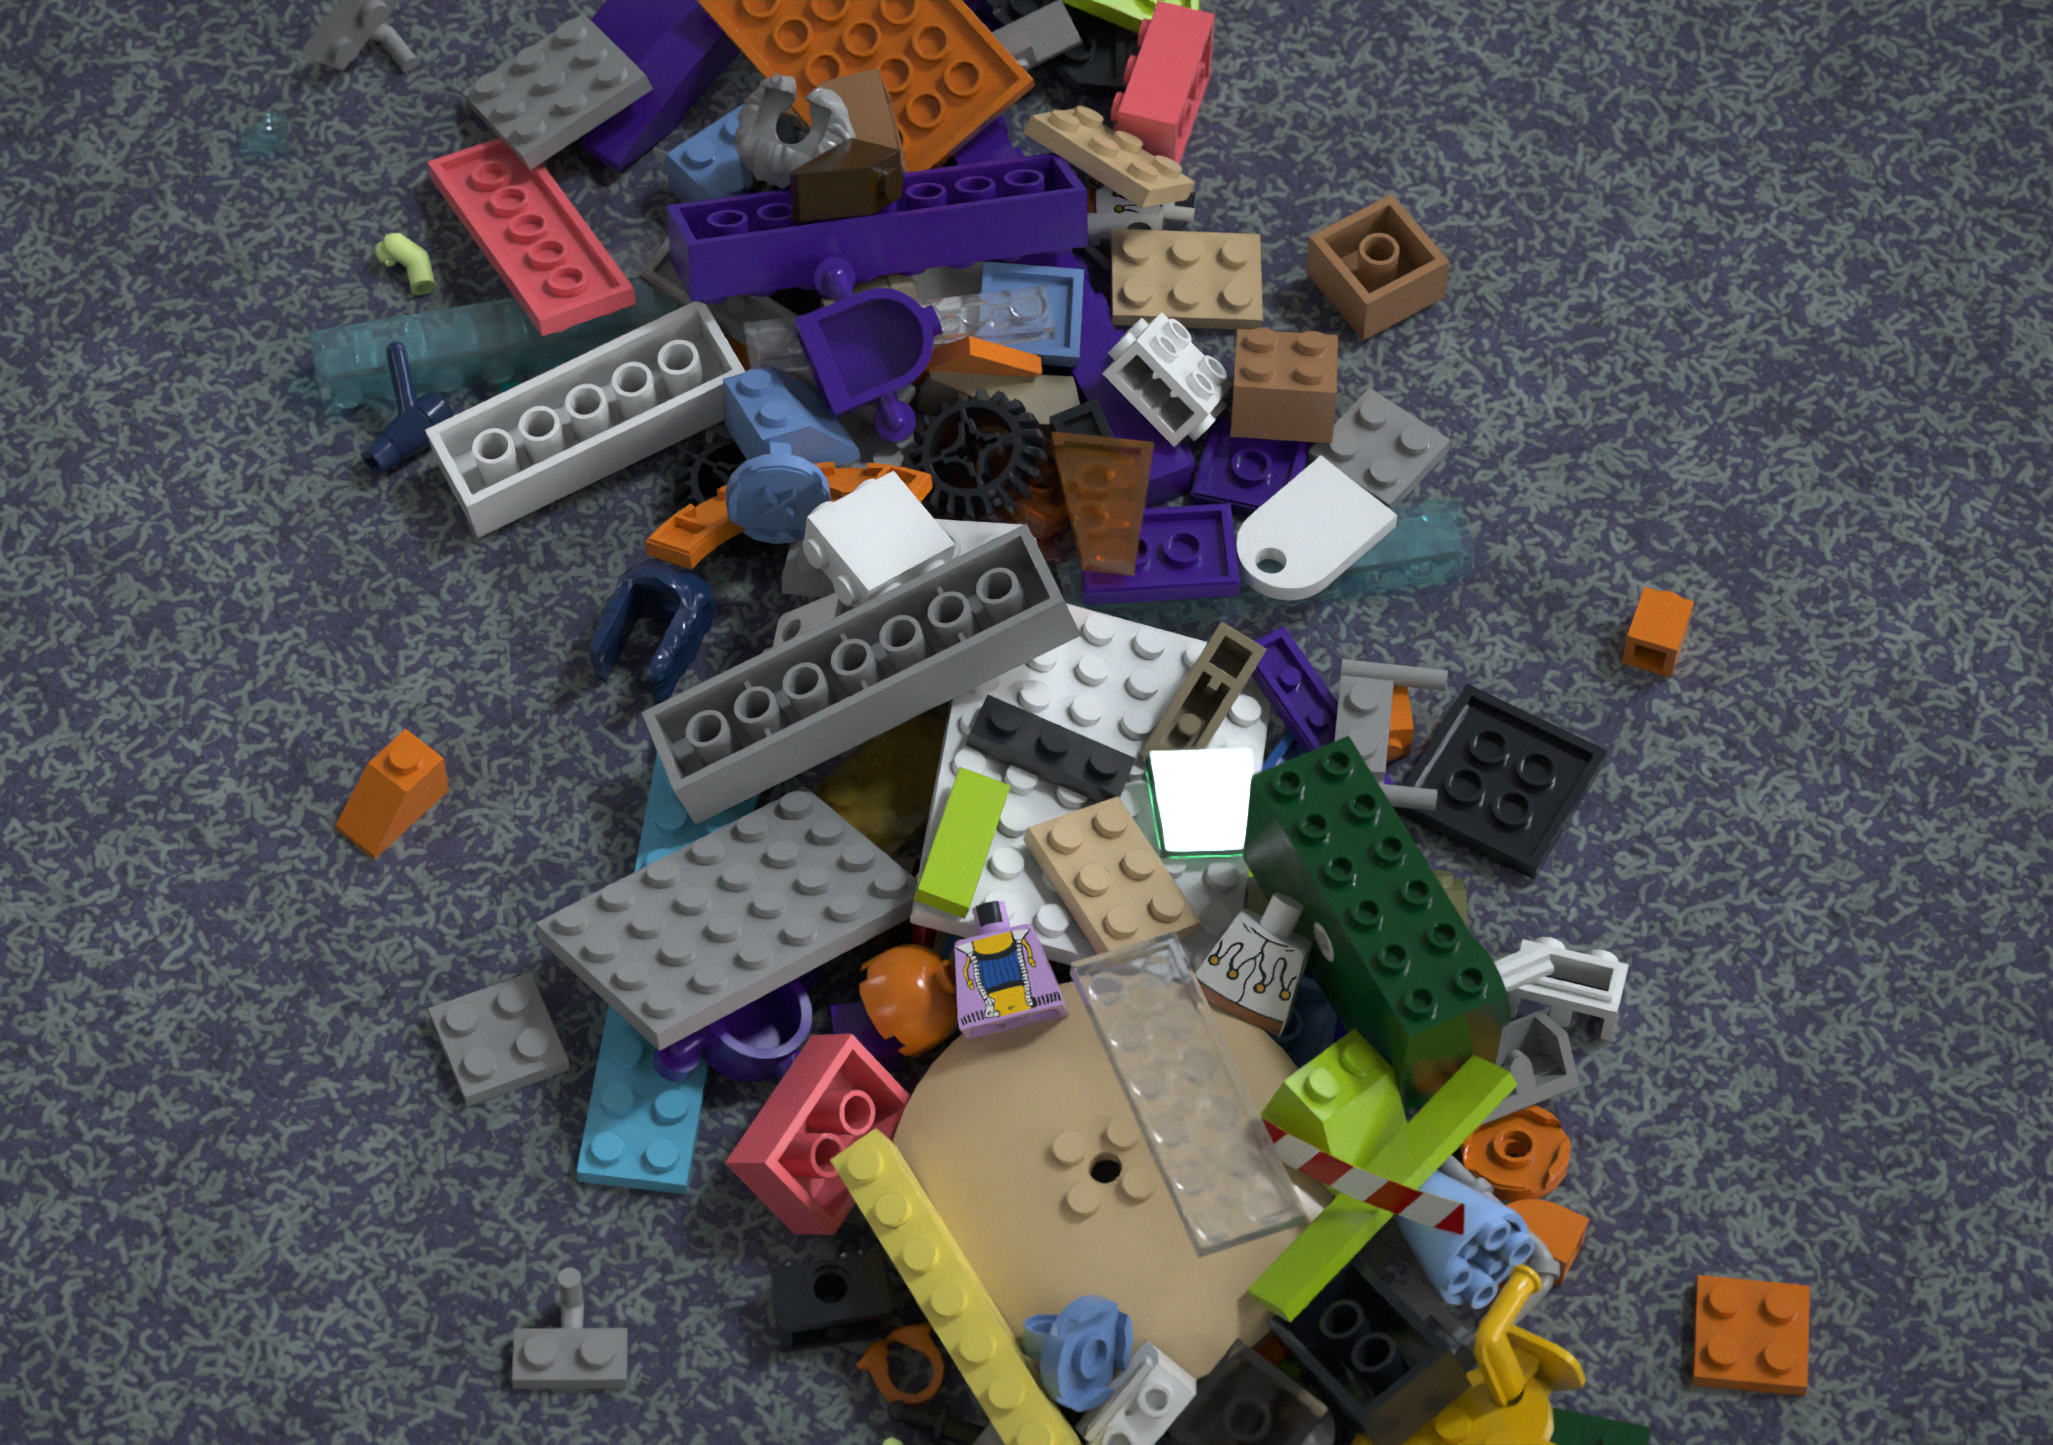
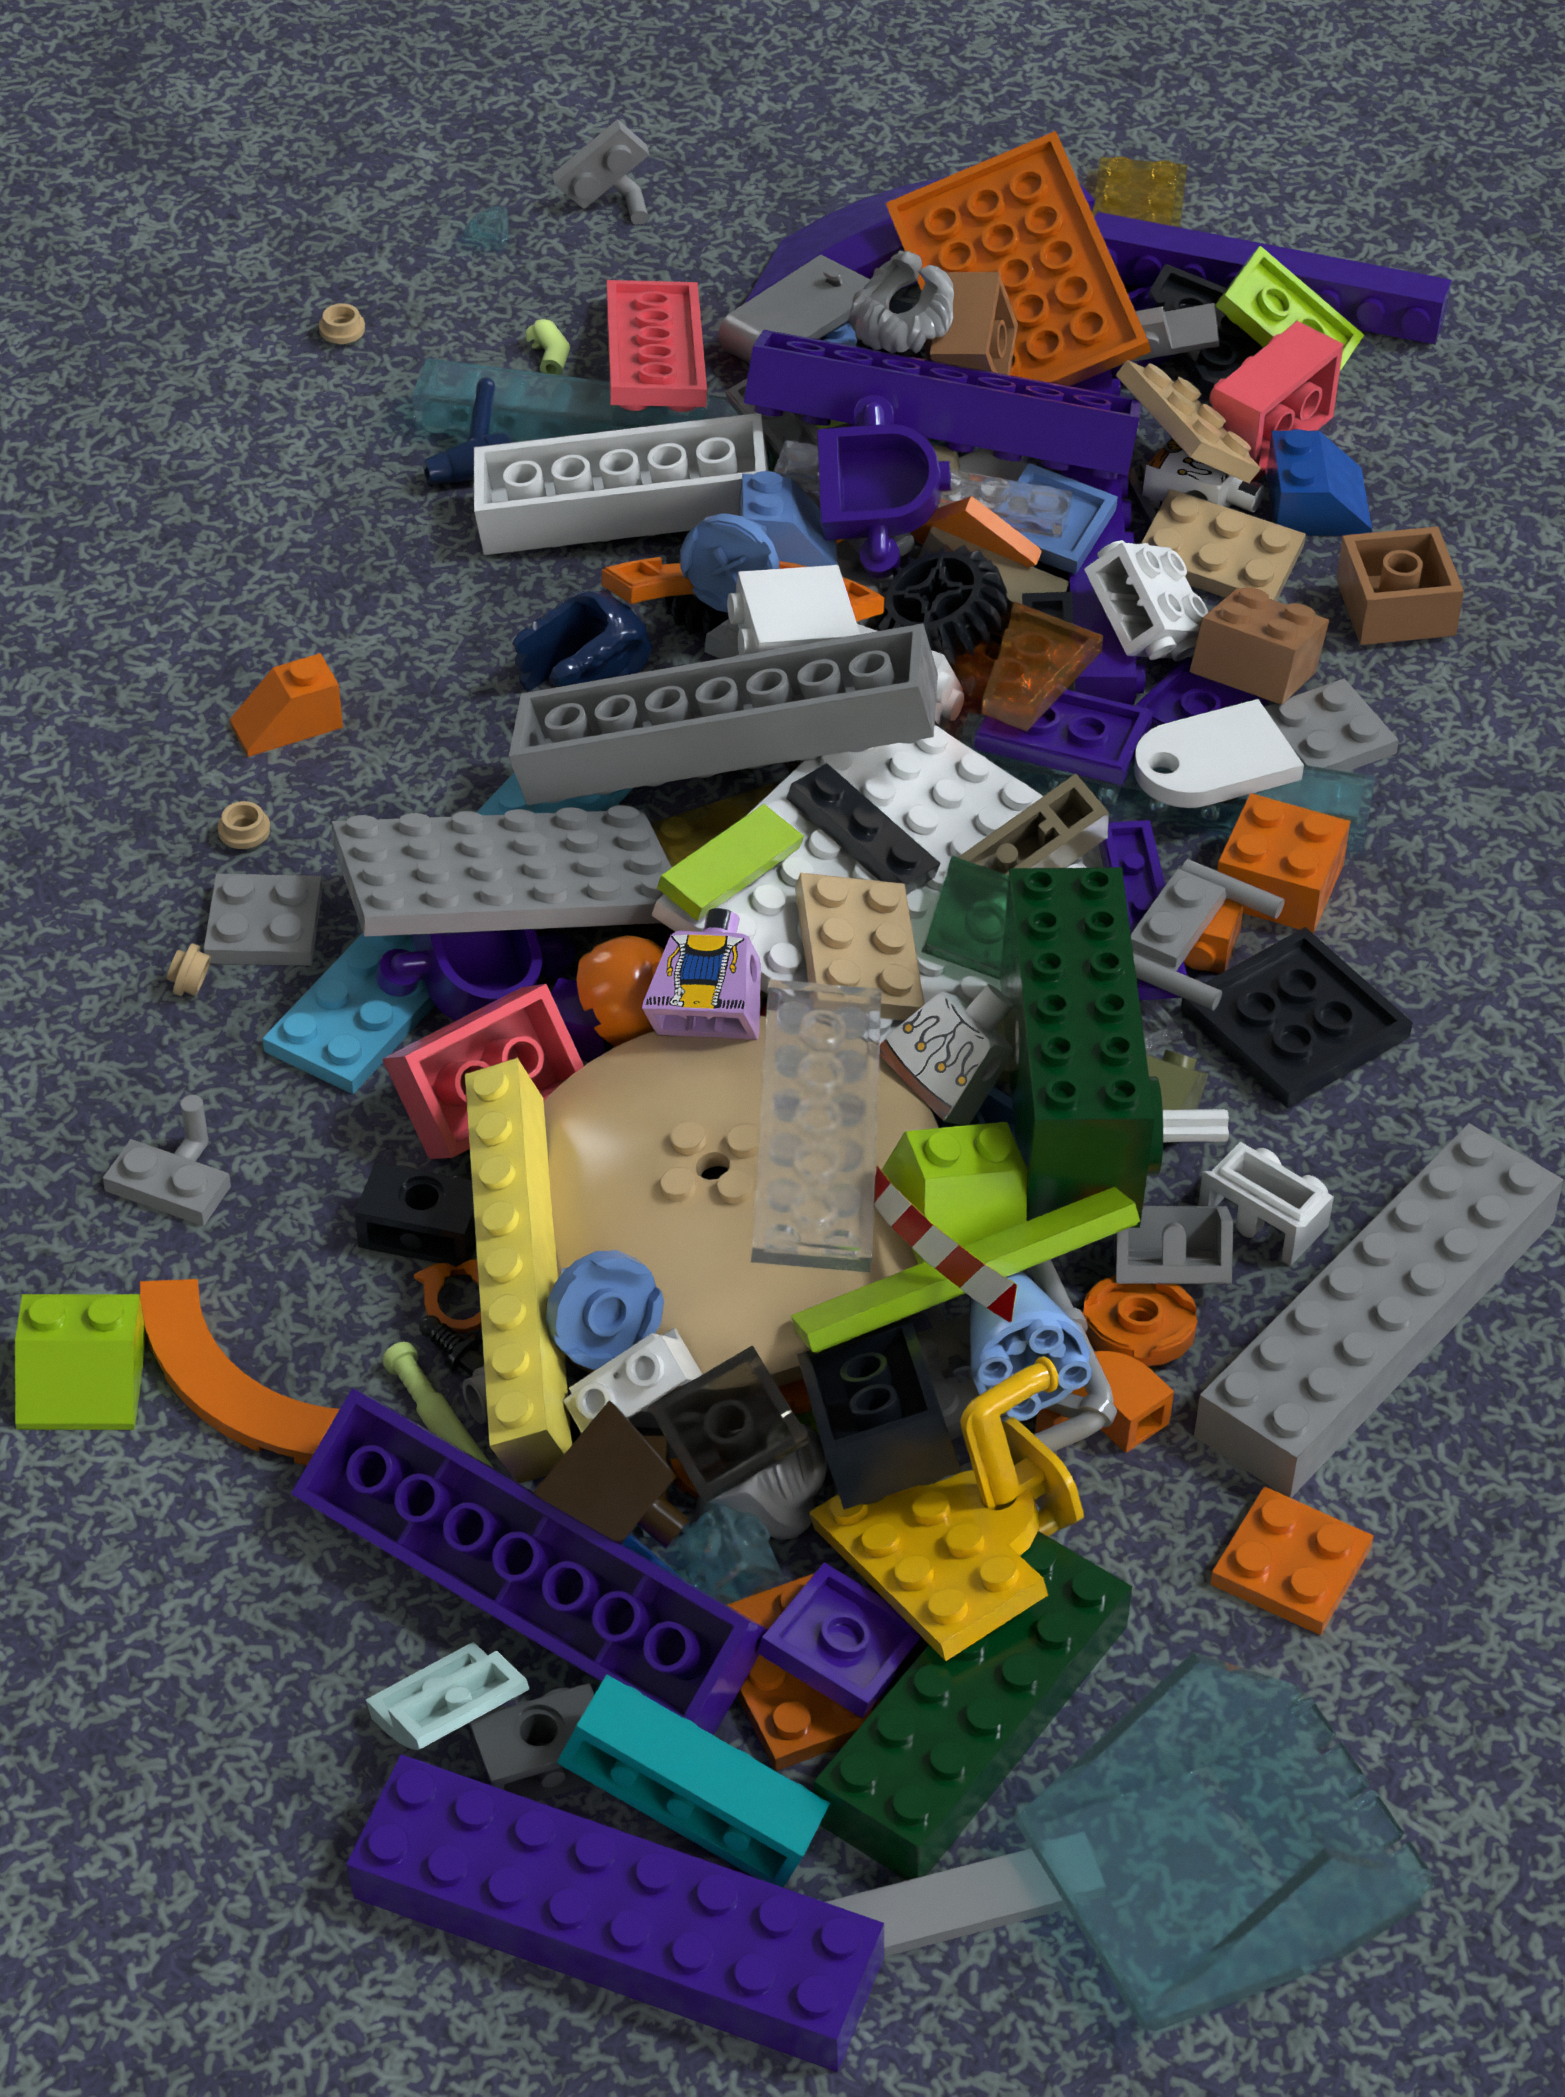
camera: 25 degrees right, 10 degrees down
(181, 298) = (341, 324): none -> tan plate
(418, 931) = (243, 825): none -> tan plate
(465, 1126) = (188, 970): none -> tan plate
(556, 91) = (742, 255): light grey plate -> none
(656, 149) = (801, 304): none -> light grey door
(846, 182) = (920, 344): dark brown slope -> none
(1239, 174) = (1315, 486): none -> blue slope
(1415, 615) = (1288, 855): none -> orange brick
(1657, 631) = (1515, 945): orange brick -> none
(1715, 1061) = (1377, 1310): none -> light grey brick

